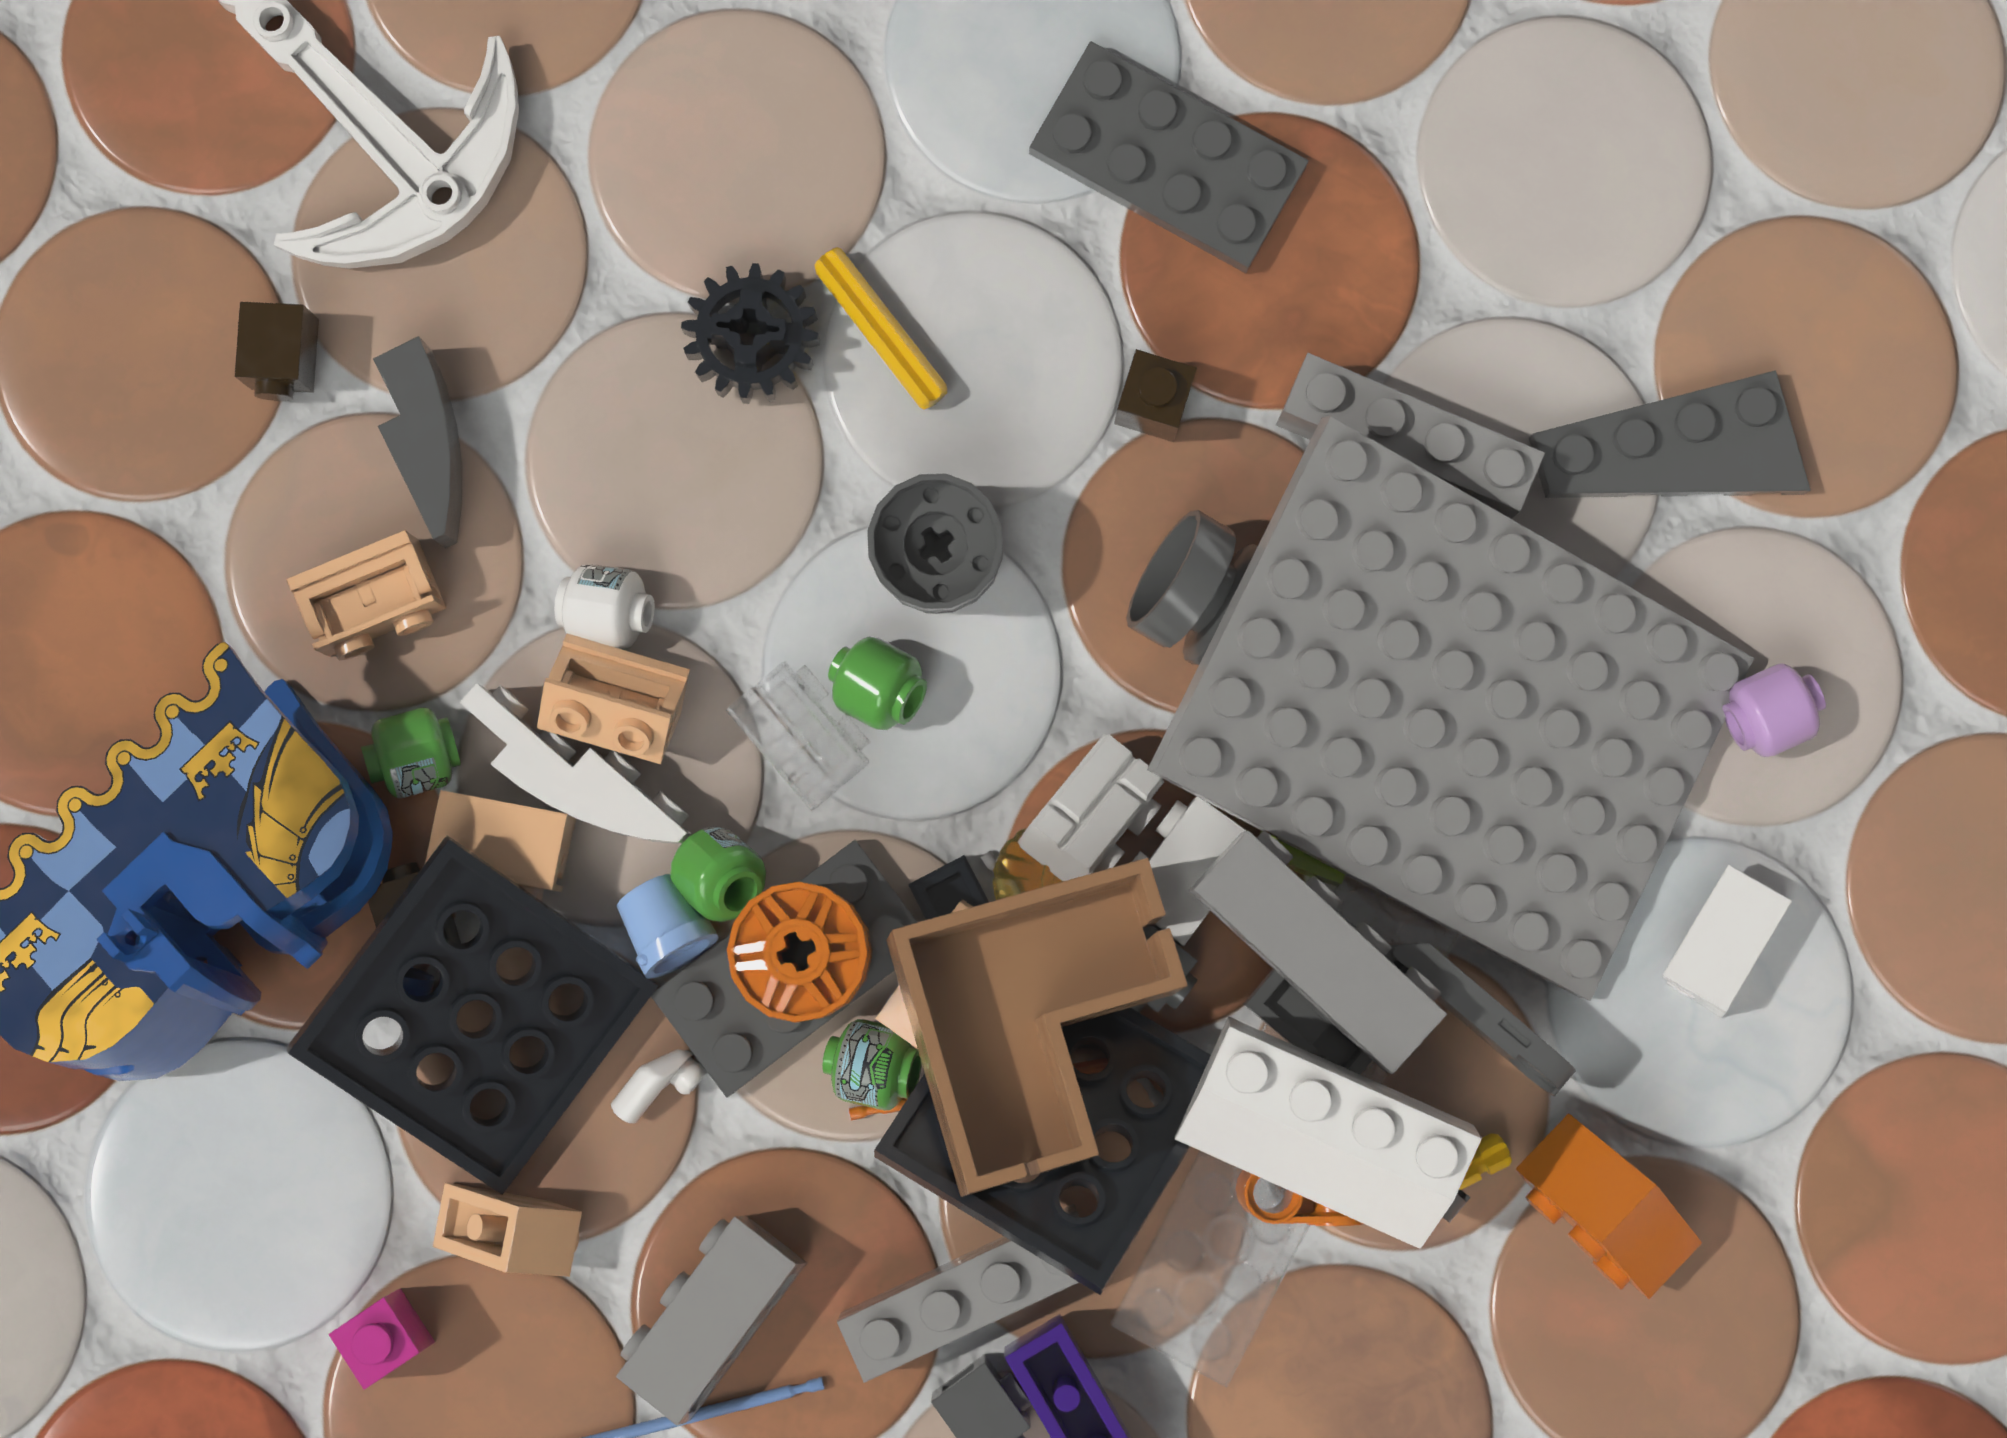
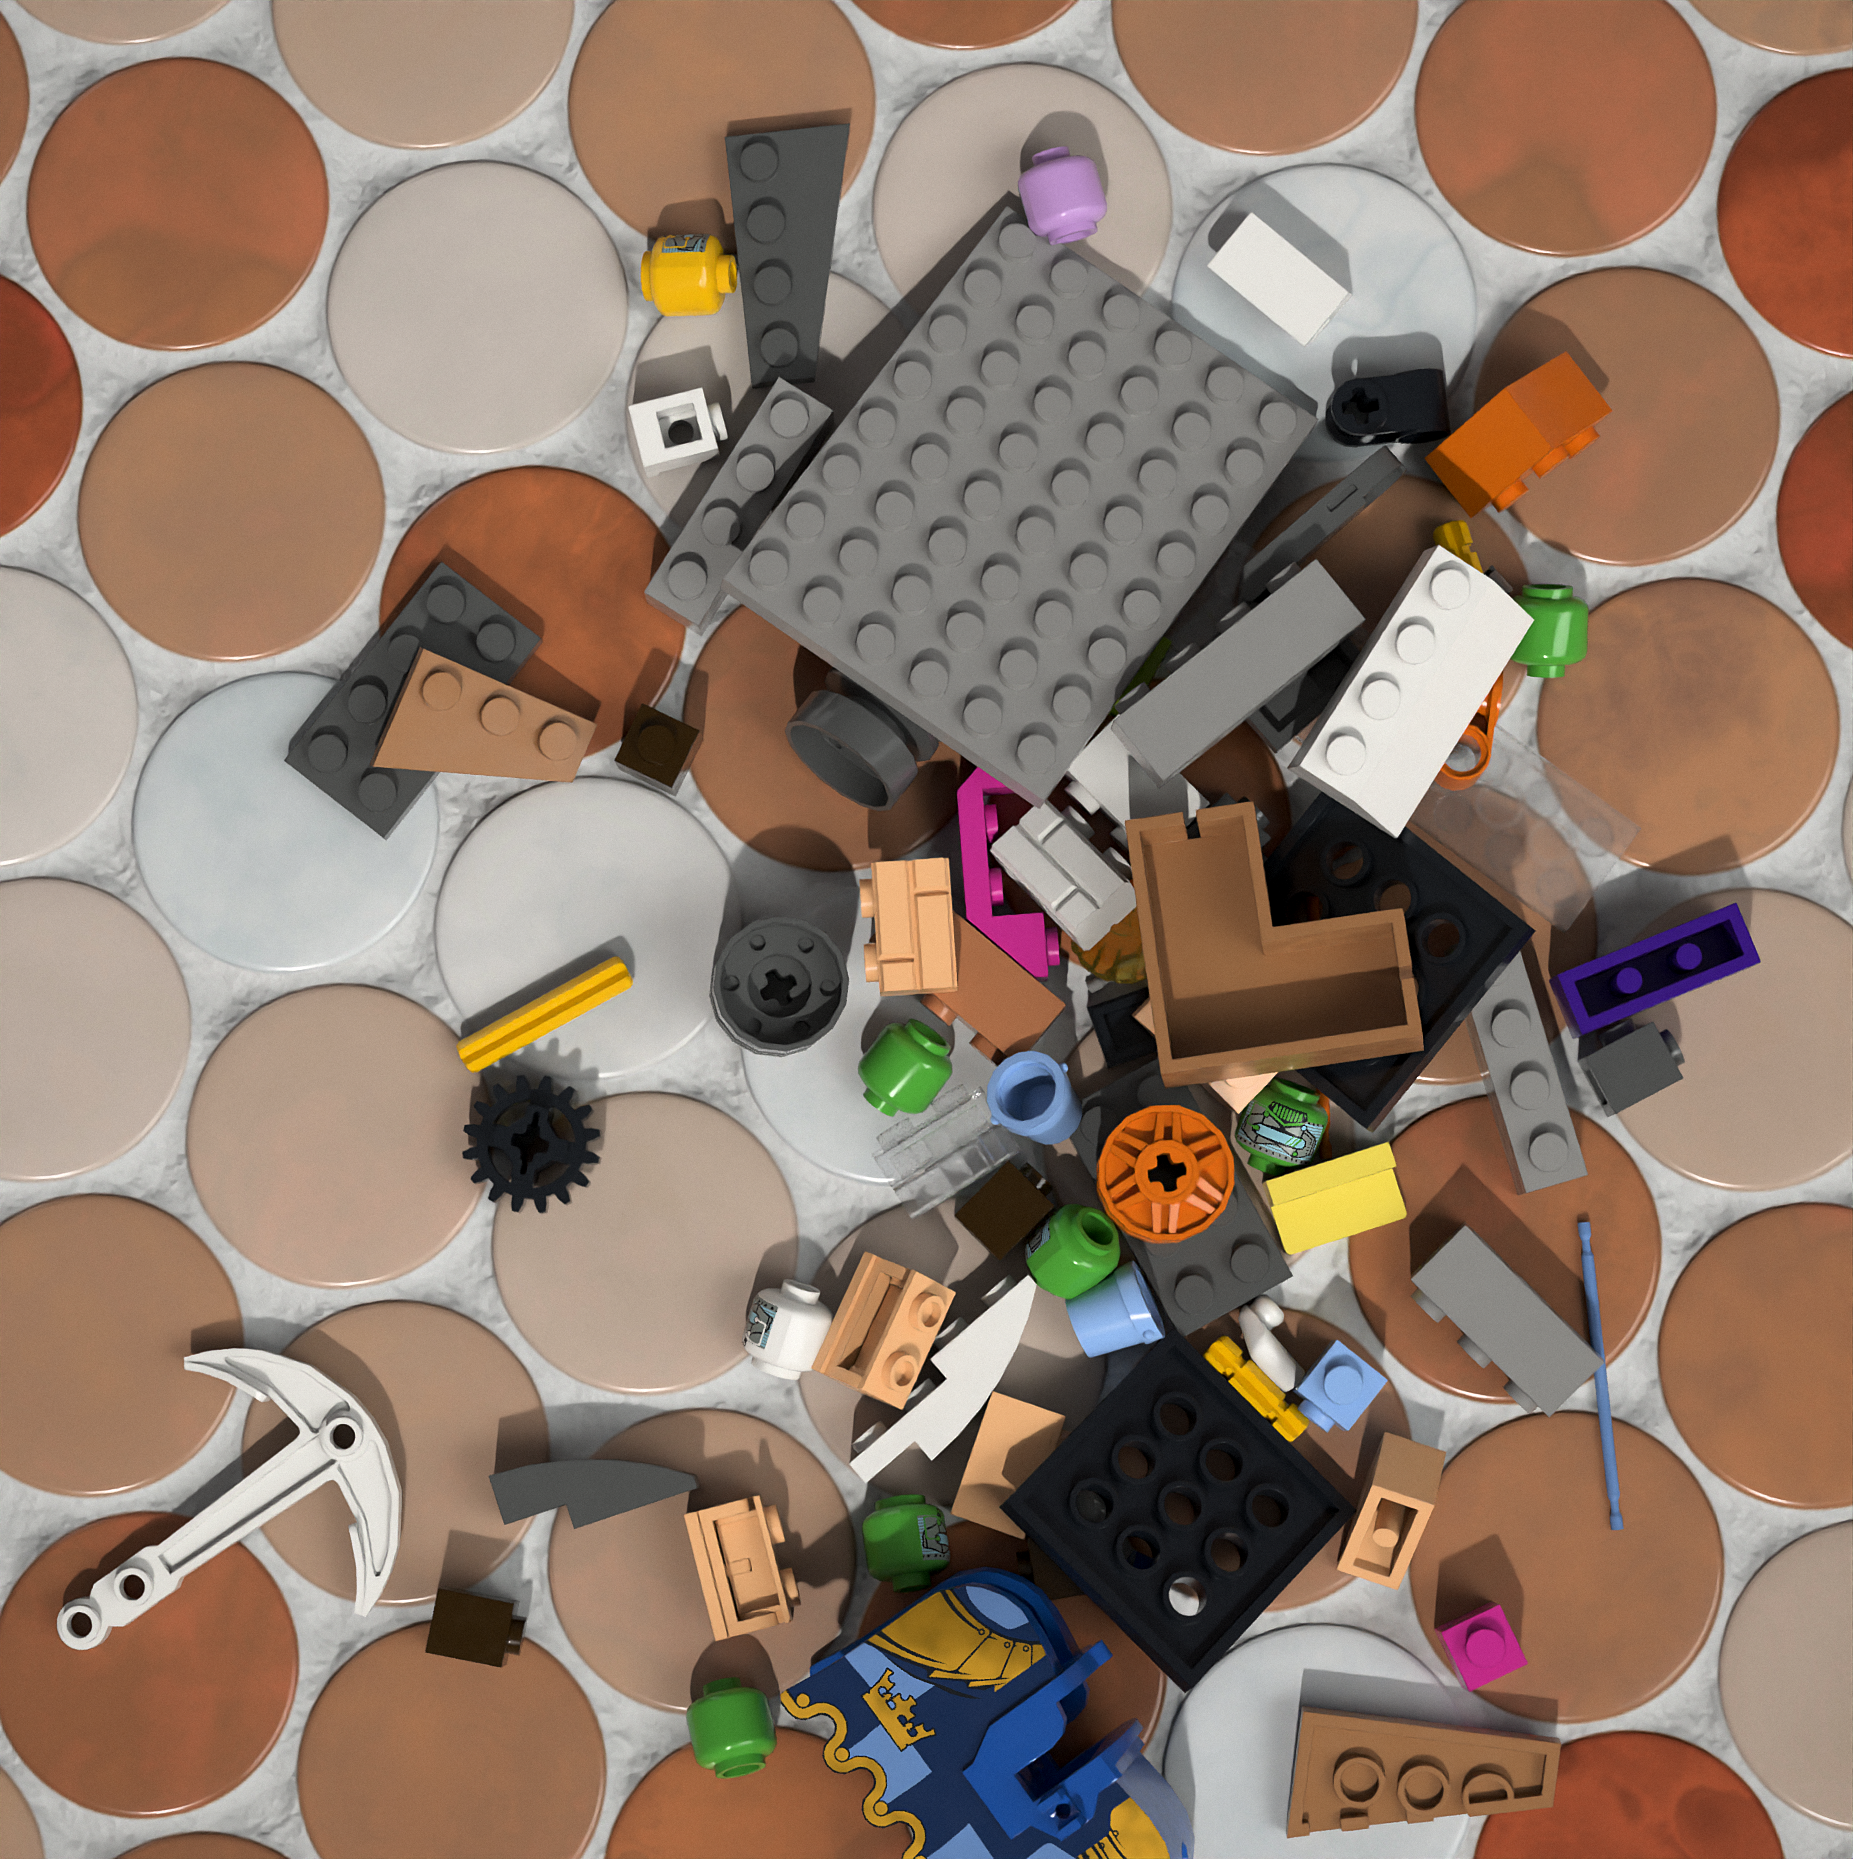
camera: 80 degrees left, 0 degrees up
(209, 609) = (731, 1728): none -> bright green head
(253, 1273) = (1393, 1769): none -> medium nougat wing
(611, 1076) = (1256, 1388): none -> yellow axle
(619, 1158) = (1338, 1388): none -> light blue brick
(752, 803) = (1006, 1208): none -> dark brown brick
(810, 1130) = (1335, 1199): none -> light yellow panel
(861, 812) = (1034, 1098): none -> light blue piece
(975, 728) = (993, 997): none -> nougat brick
(1012, 662) = (912, 927): none -> light nougat brick
(1022, 776) = (1019, 935): none -> dark pink slope
(1151, 218) = (478, 726): none -> medium nougat wing
(1414, 1274) = (1558, 629): none -> bright green head
(1476, 344) = (657, 418): none -> white brick
(1616, 1081) = (1400, 407): none -> black piece
(1631, 353) = (687, 275): none -> yellow head

